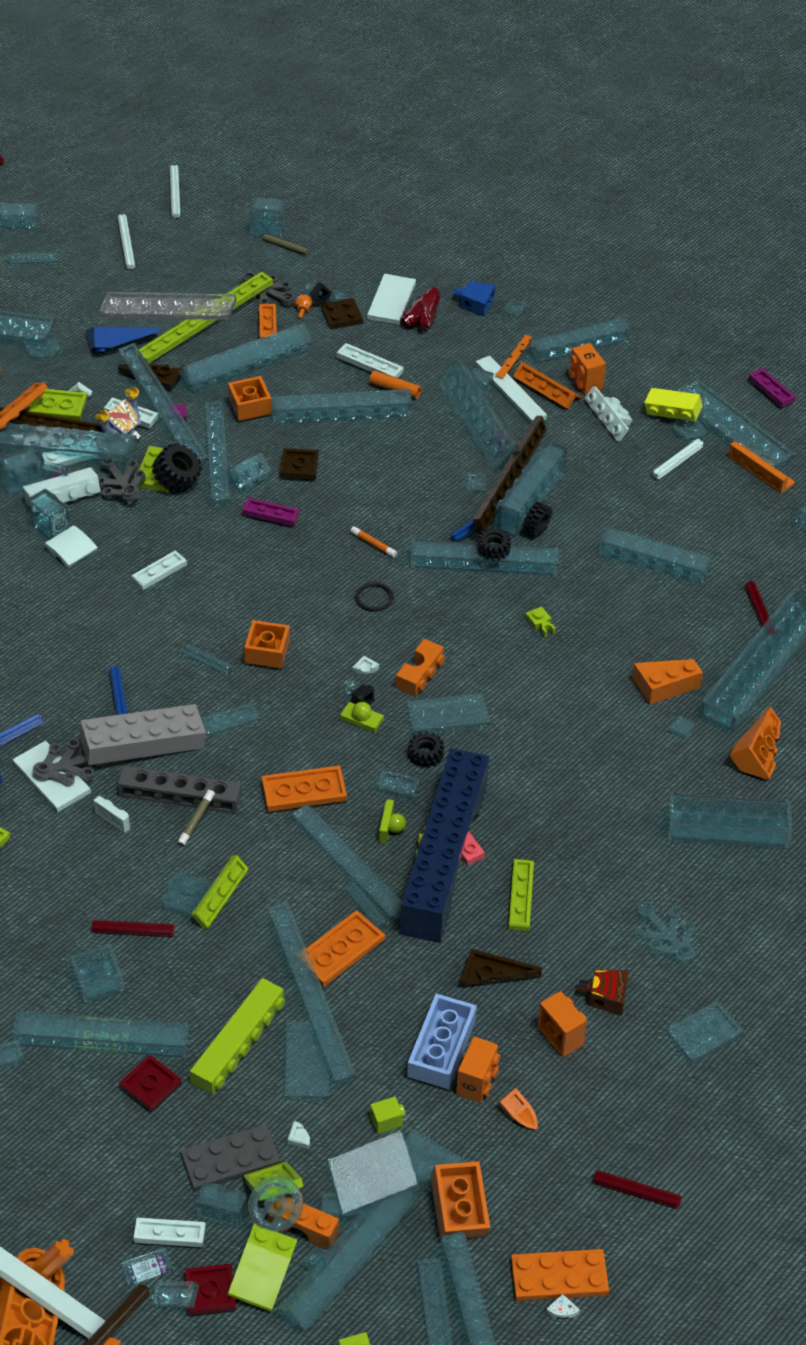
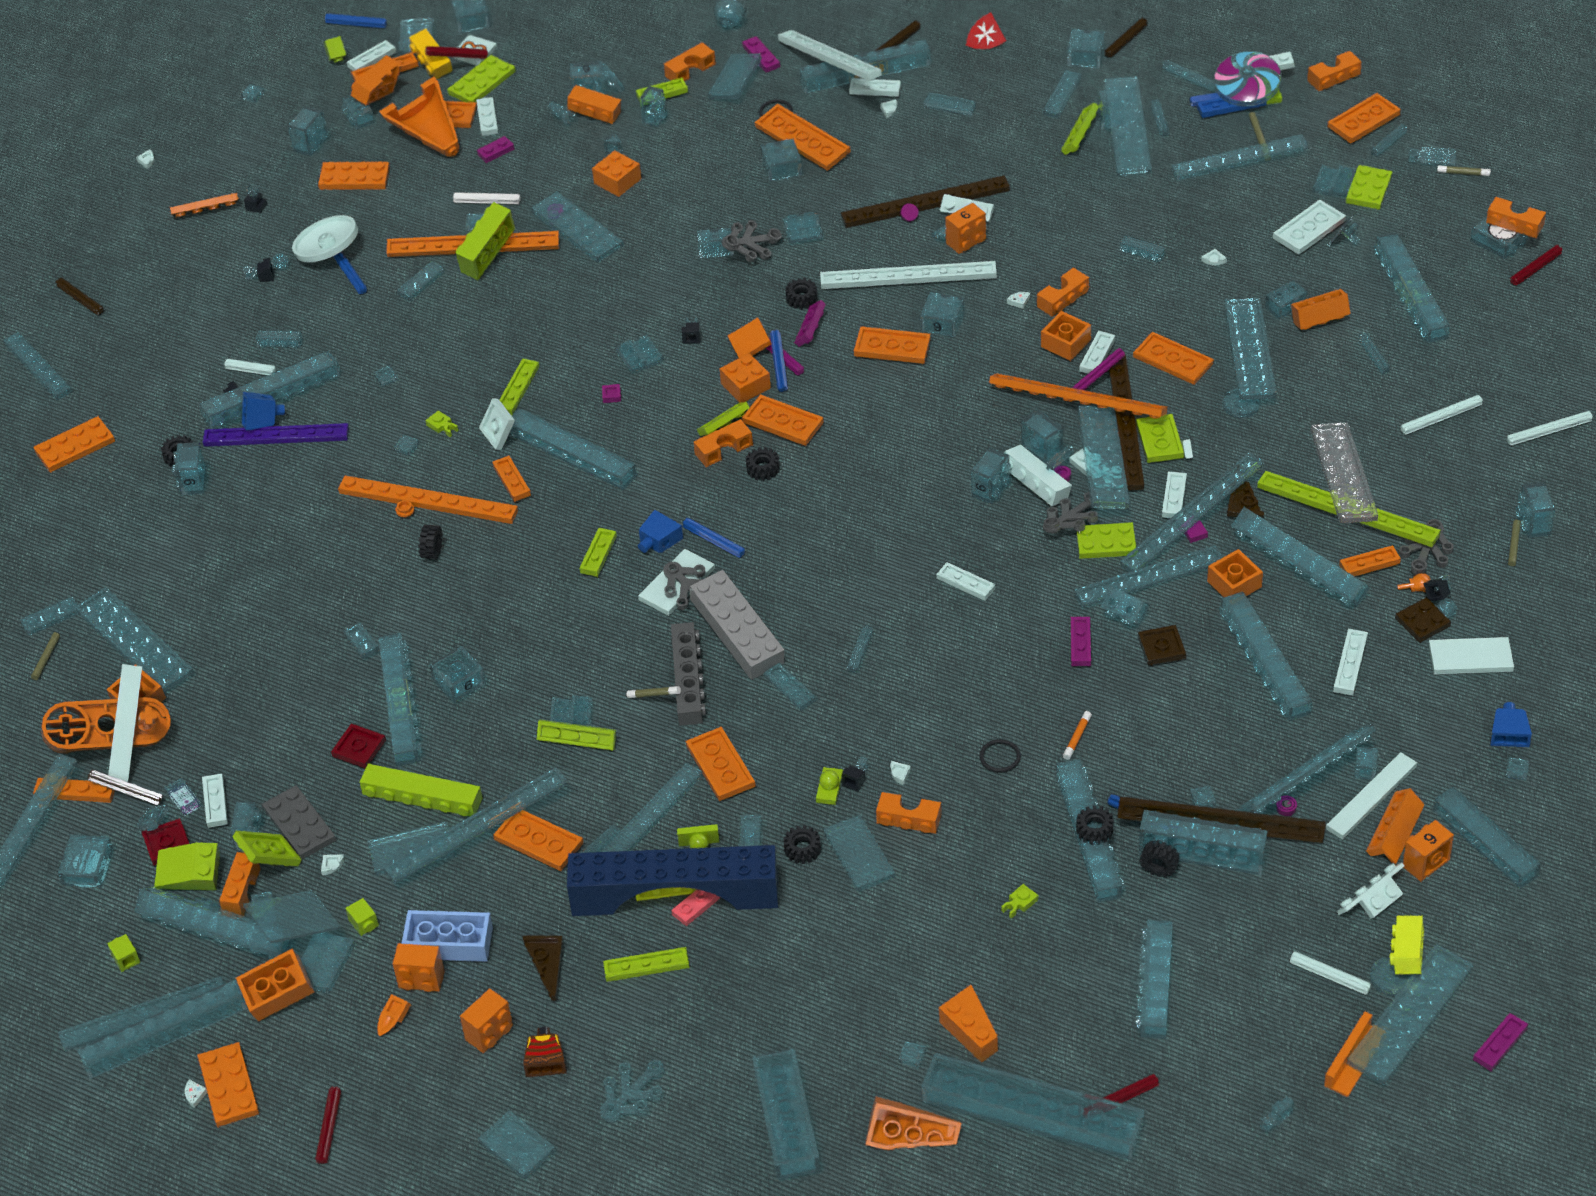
camera: 80 degrees right, 0 degrees up
(71, 546) = (967, 507): light aqua slope -> none
(108, 337) = (1277, 444): blue wedge -> none
(112, 814) = (643, 631): light aqua plate -> none
(118, 691) = (789, 599): blue axle -> none
(123, 417) = (1147, 485): torso -> none
(139, 928) = (521, 688): dark red axle -> none
(176, 467) = (1103, 532): black tyre -> none
(262, 1191) = (231, 848): clear light blue plate -> none
(267, 644) = (888, 684): orange brick -> none
(392, 383) = (1325, 692): orange piece -> none
(422, 310) = (1457, 684): dark red animal -> none
(516, 353) = (1415, 783): orange piece -> none

